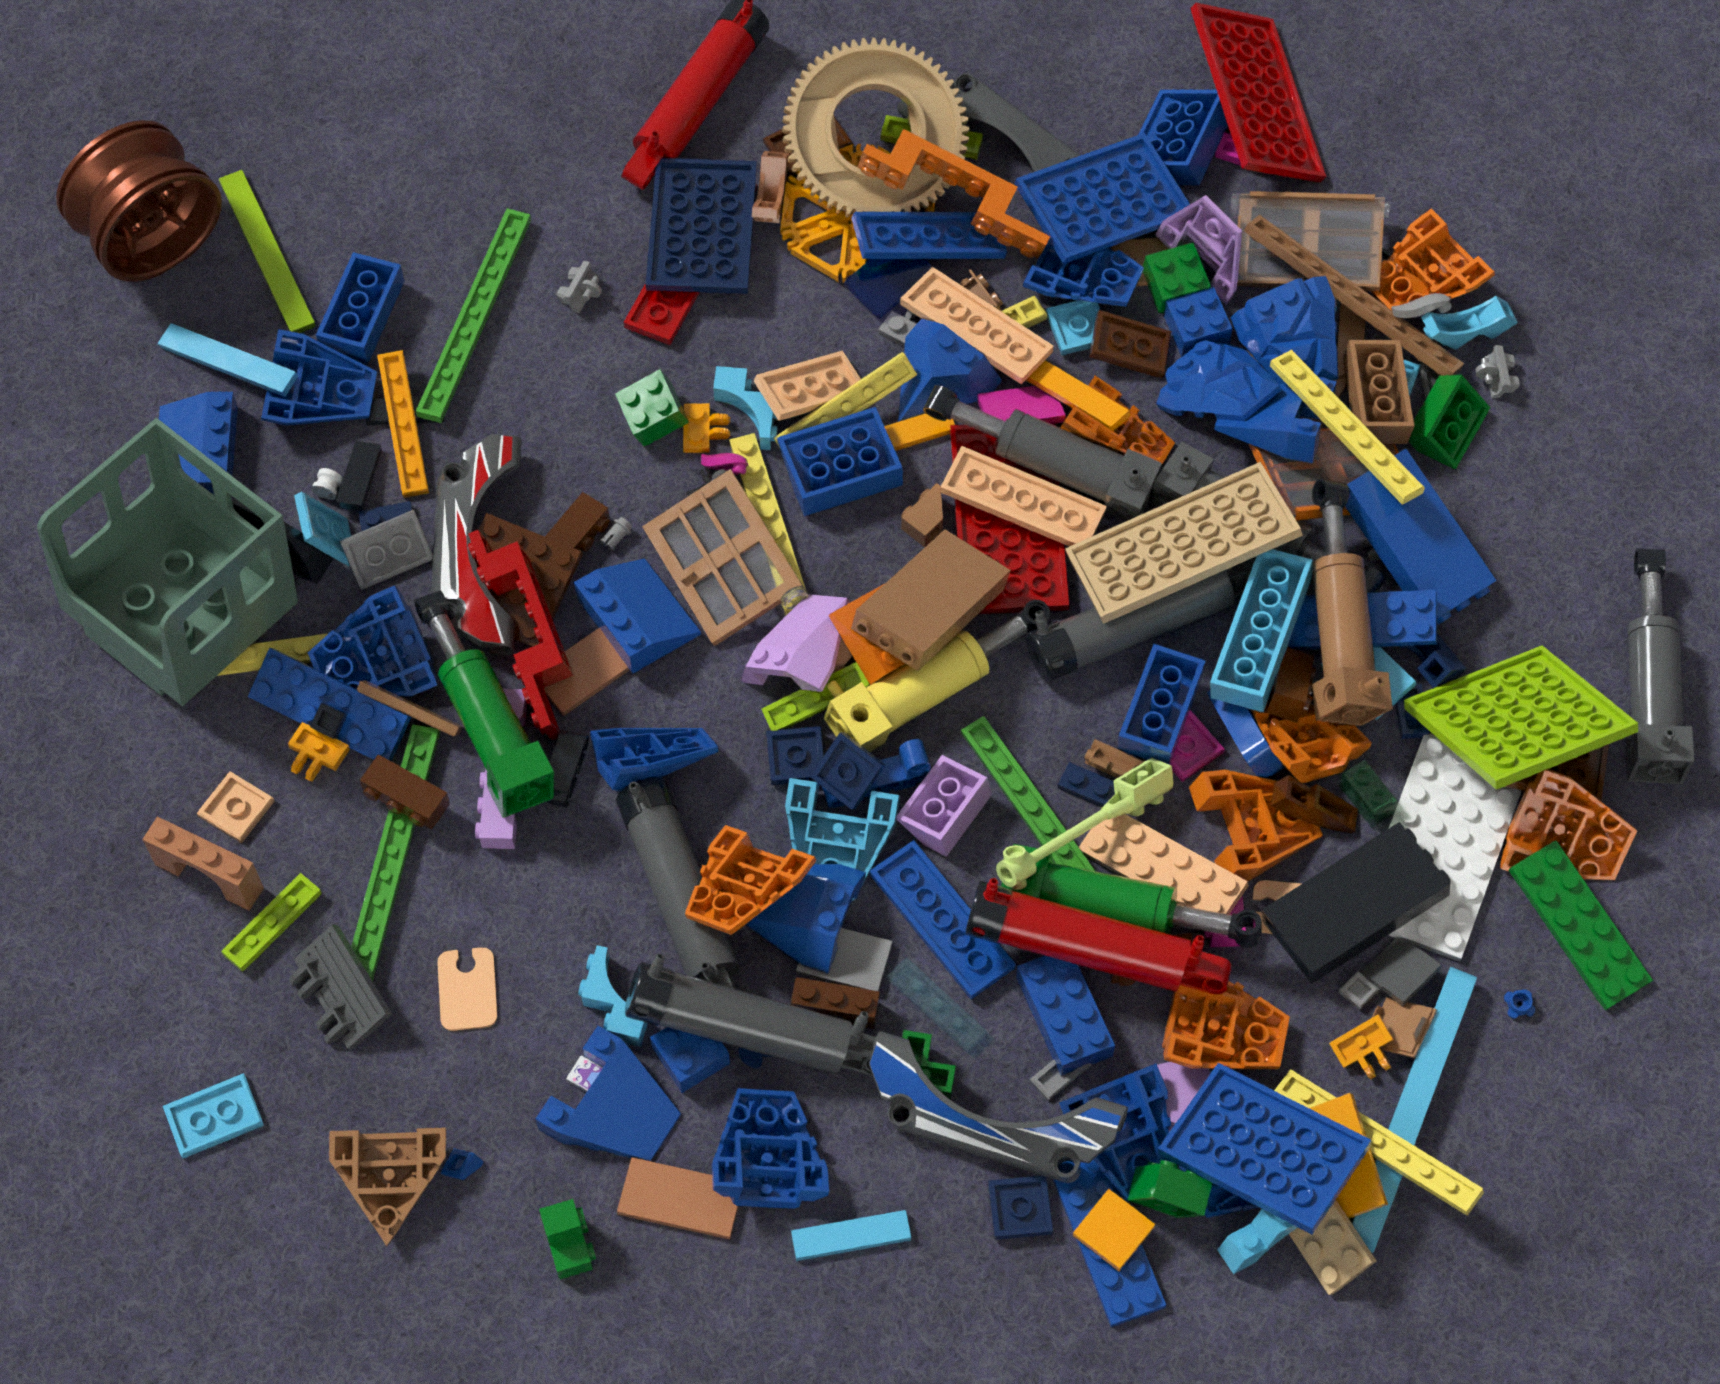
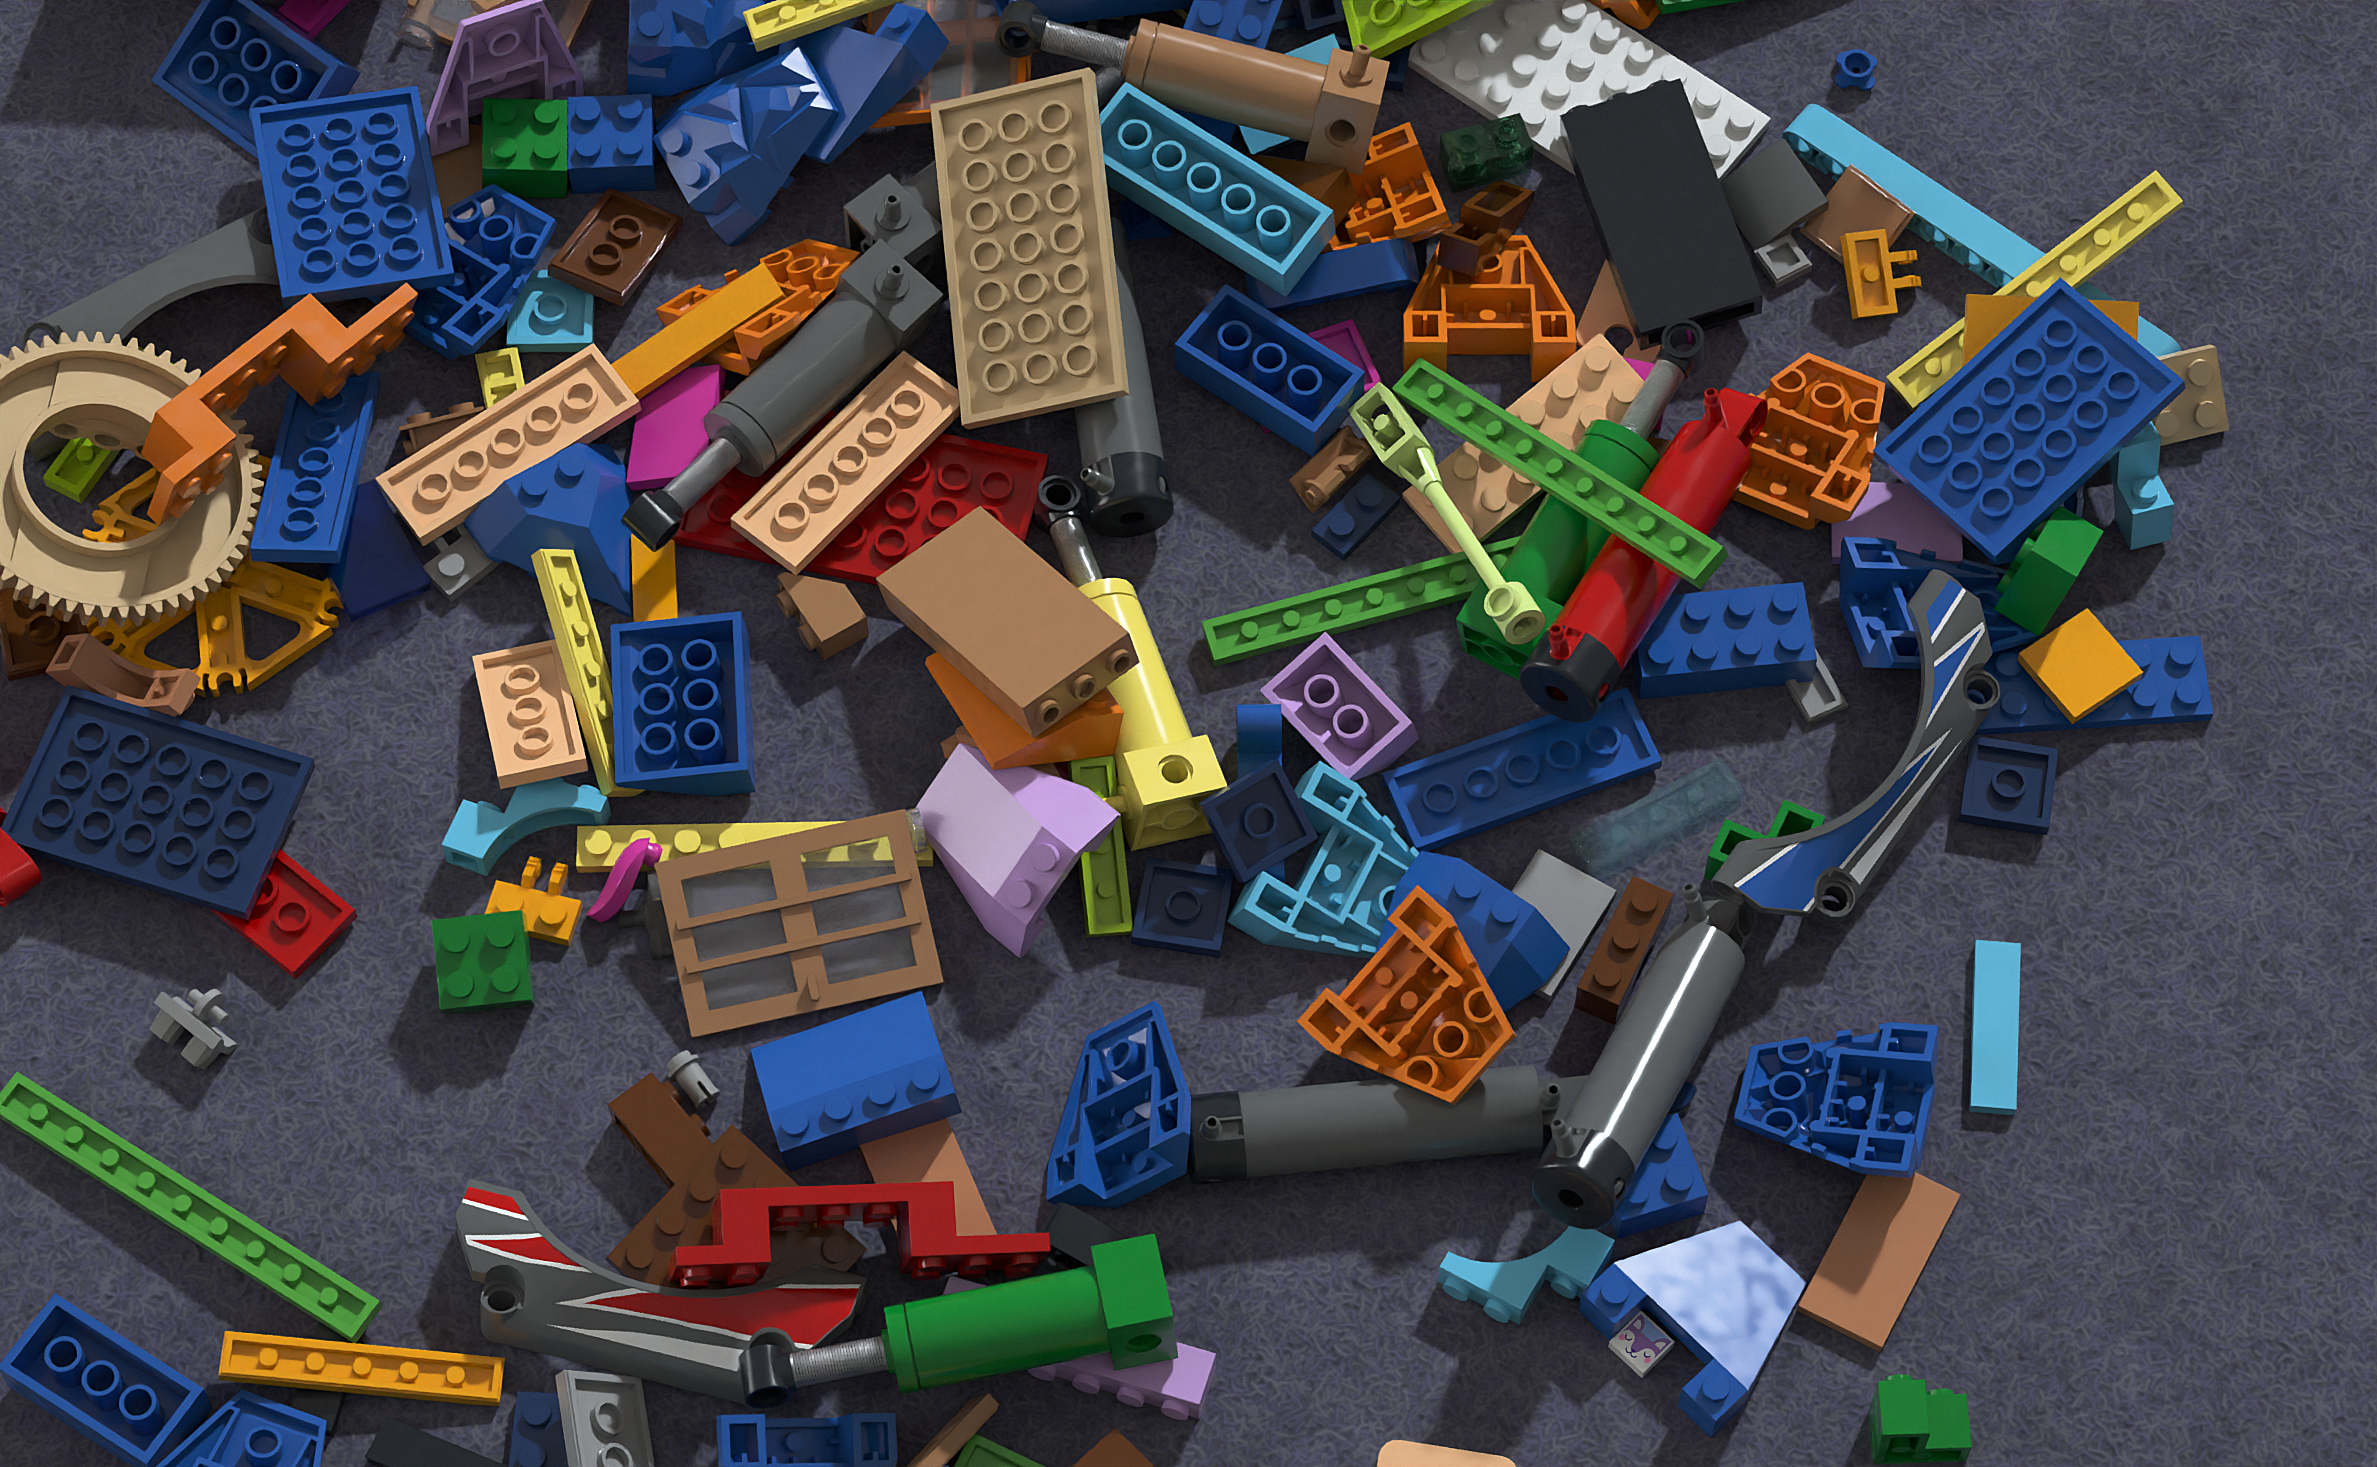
camera: 75 degrees left, 0 degrees up
(1124, 873) = (1561, 473): none -> bright green plate

